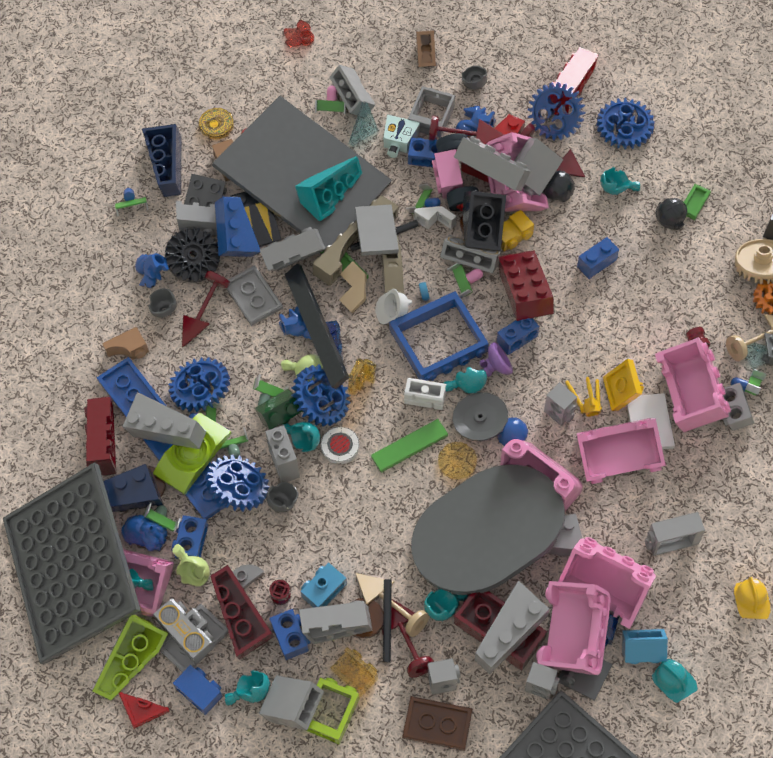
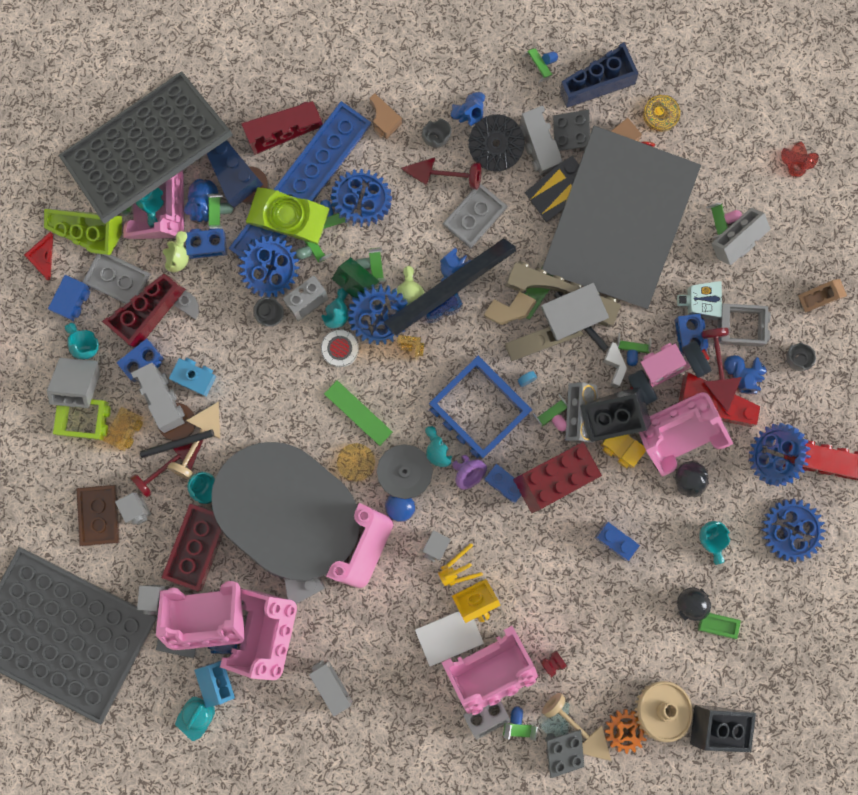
camera: 65 degrees right, 20 degrees up
(160, 423) = (302, 173): light grey wedge -> none
(177, 623) = (114, 266): light grey piece -> none
(234, 229) = (532, 172): blue wedge -> none
(281, 596) = (180, 342): dark red wheel -> none
(292, 249) = (527, 236): light grey wedge -> none
(325, 189) = (605, 246): teal wedge -> none
(364, 125) = (703, 261): clear light blue tile -> none
(391, 306) = (496, 353): white piece -> none
(425, 393) = (411, 412): white brick -> none
(492, 163) = (678, 405): light grey wedge -> none
(514, 623) = (188, 559): light grey wedge -> none
(541, 163) = (696, 449): light grey brick -> none
(569, 161) = (723, 482): dark red piece -> none
(621, 449) = (408, 613): bright pink windscreen -> none
(752, 599) = (294, 774): yellow piece -> none

